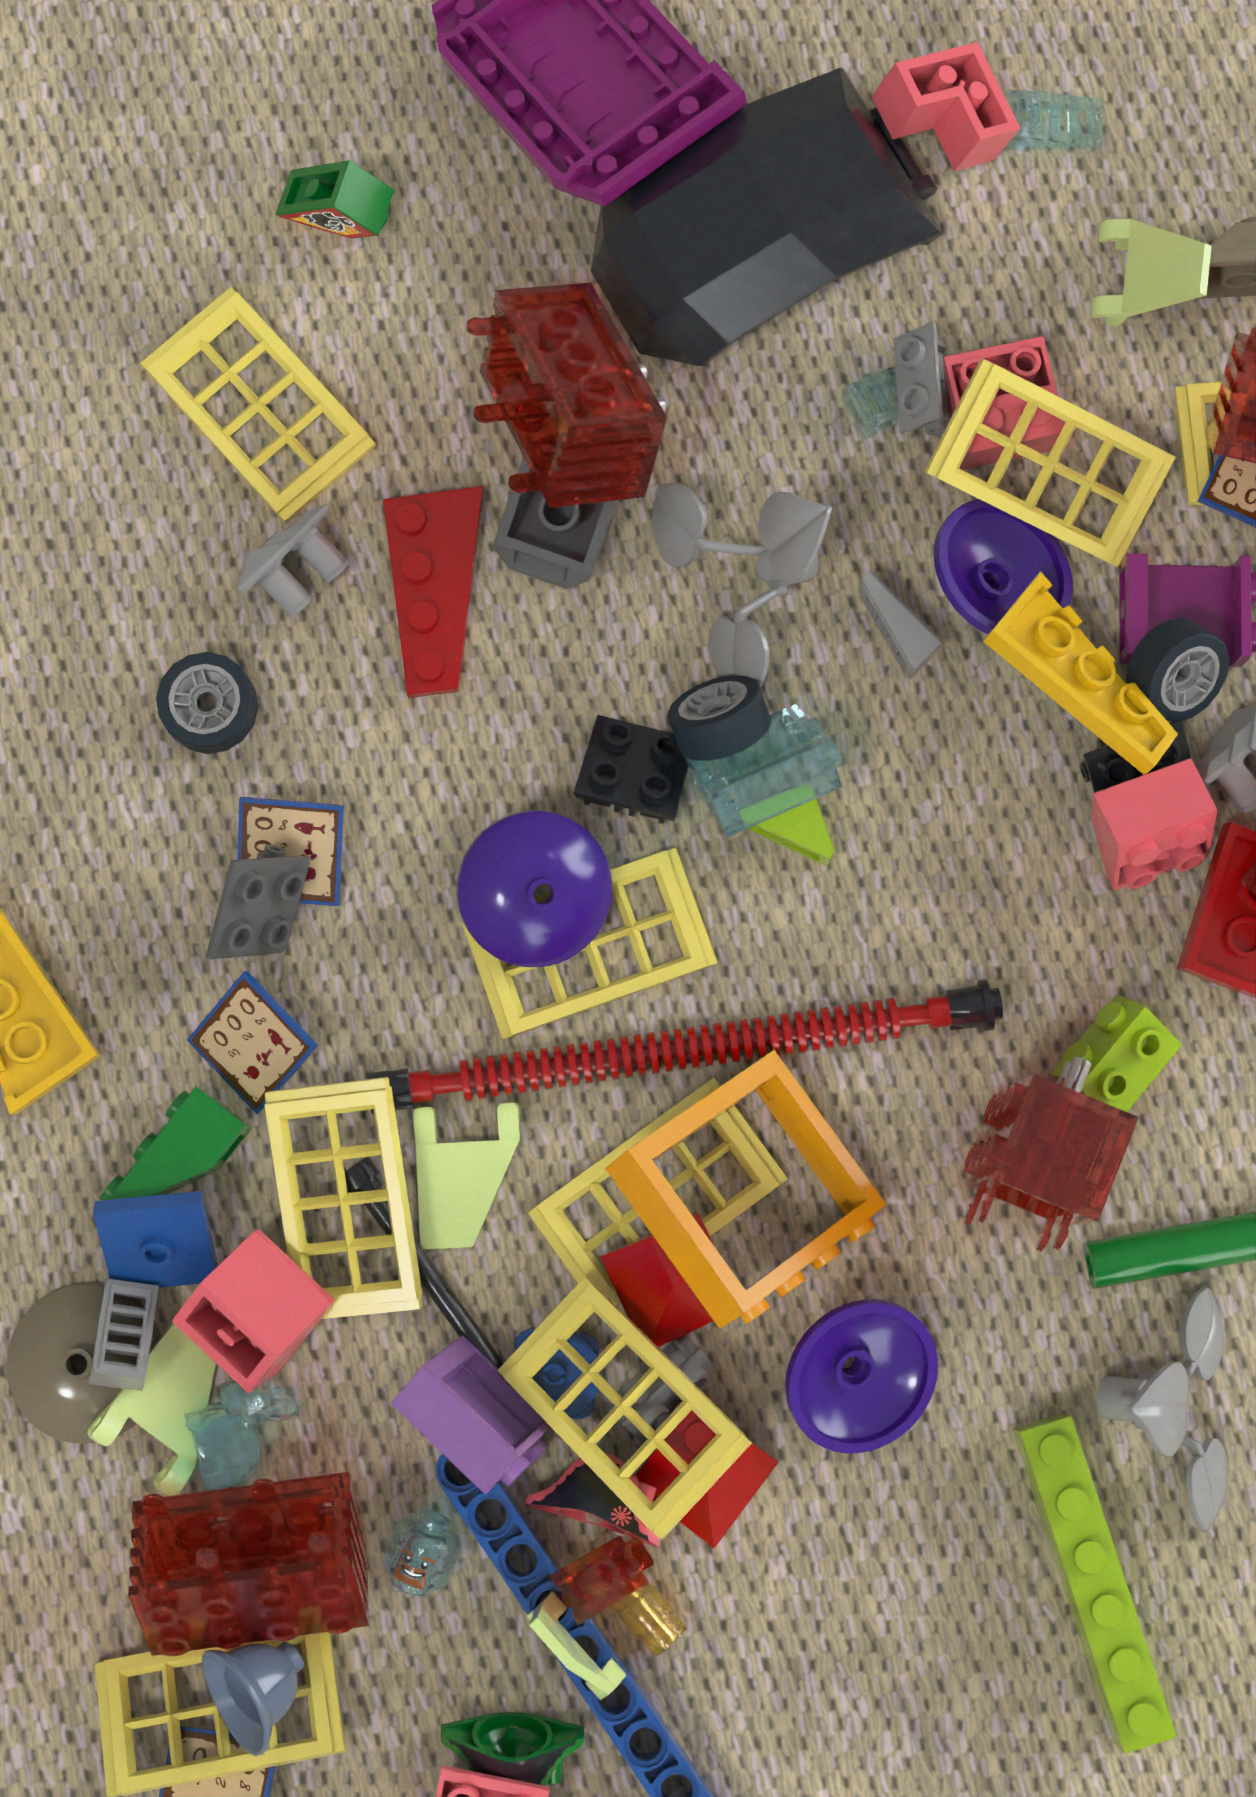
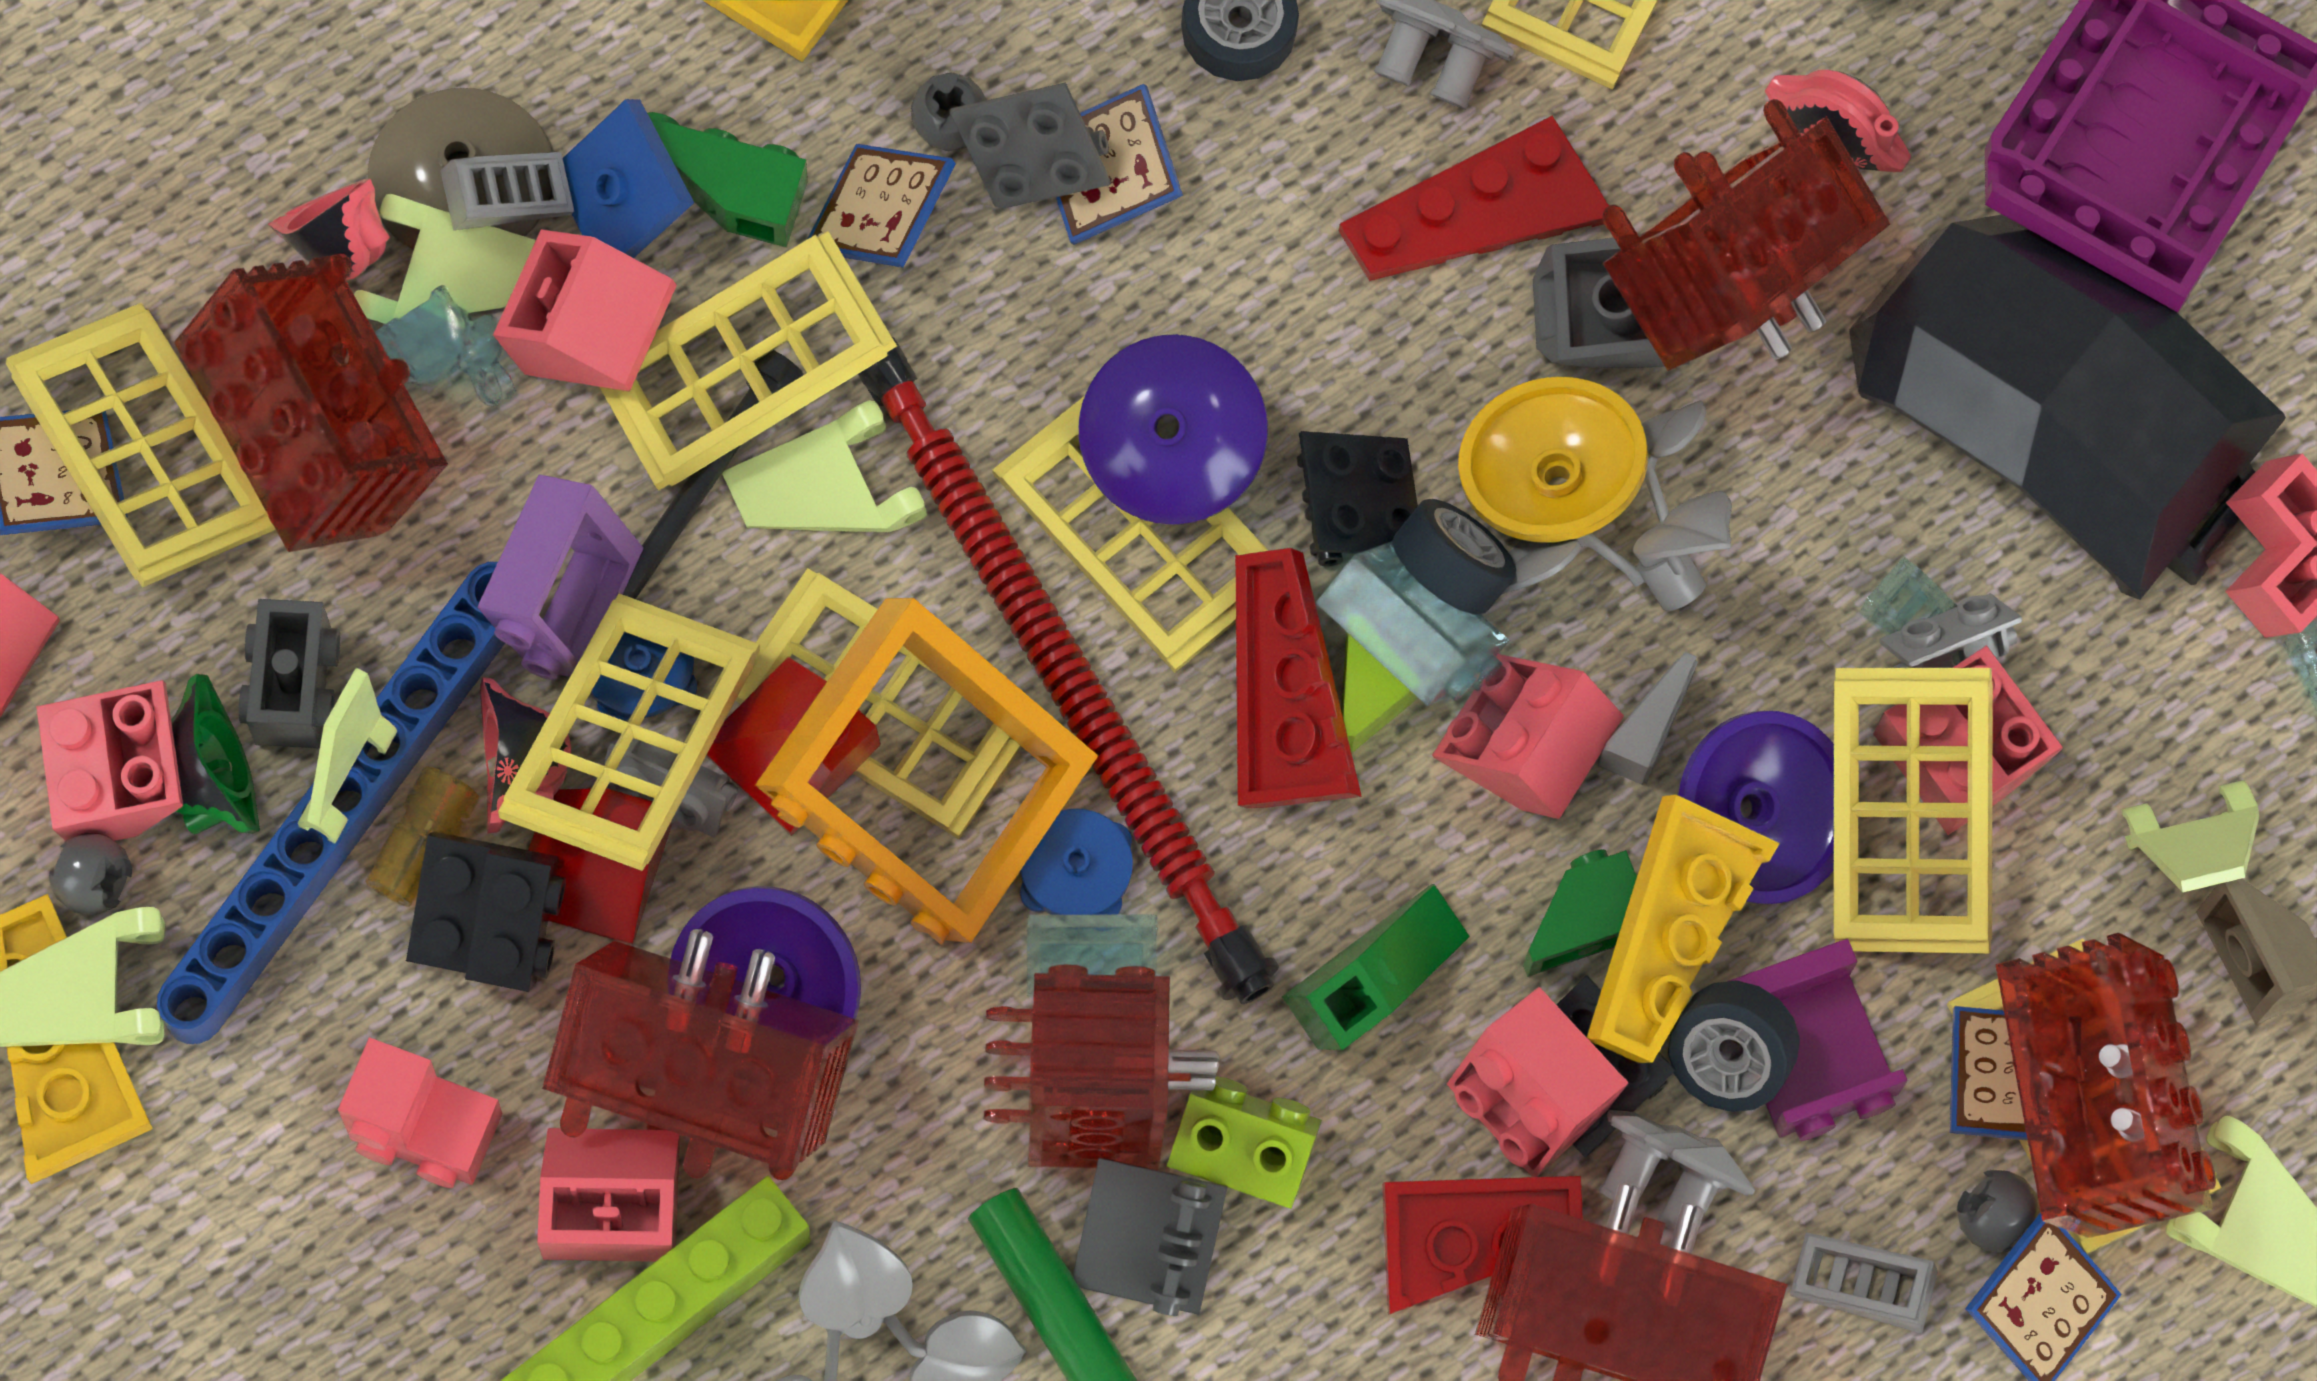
camera: 60 degrees right, 10 degrees down
(98, 1486) = (336, 224): none -> coral hat
(174, 956) = (943, 92): none -> dark grey piece
(252, 1689) = (179, 457): sand blue hat -> none
(422, 1553) = (386, 591): clear light blue head -> none
(464, 1658) = (289, 673): none -> dark grey brick
(468, 287) = (1853, 111): none -> coral hat
(603, 1577) = (432, 768): clear red hips -> none
(638, 607) = (1546, 433): none -> yellow dish
(719, 1570) = (486, 911): none -> black plate
(782, 889) = (1287, 701): none -> red wing
(849, 1095) = (1079, 866): none -> blue piece
(864, 1684) = (409, 1113): none -> coral brick
(876, 718) = (1531, 734): none -> coral slope
(909, 1440) = (710, 1048): none -> clear red piece
(925, 1116) = (1090, 941): none -> clear light blue panel
(978, 1557) = (609, 1195): none -> coral slope
(1020, 908) = (1376, 971): none -> green slope
(1028, 734) = (1584, 911): none -> green slope
(1166, 1158) = (1149, 1236): none -> dark grey hinge

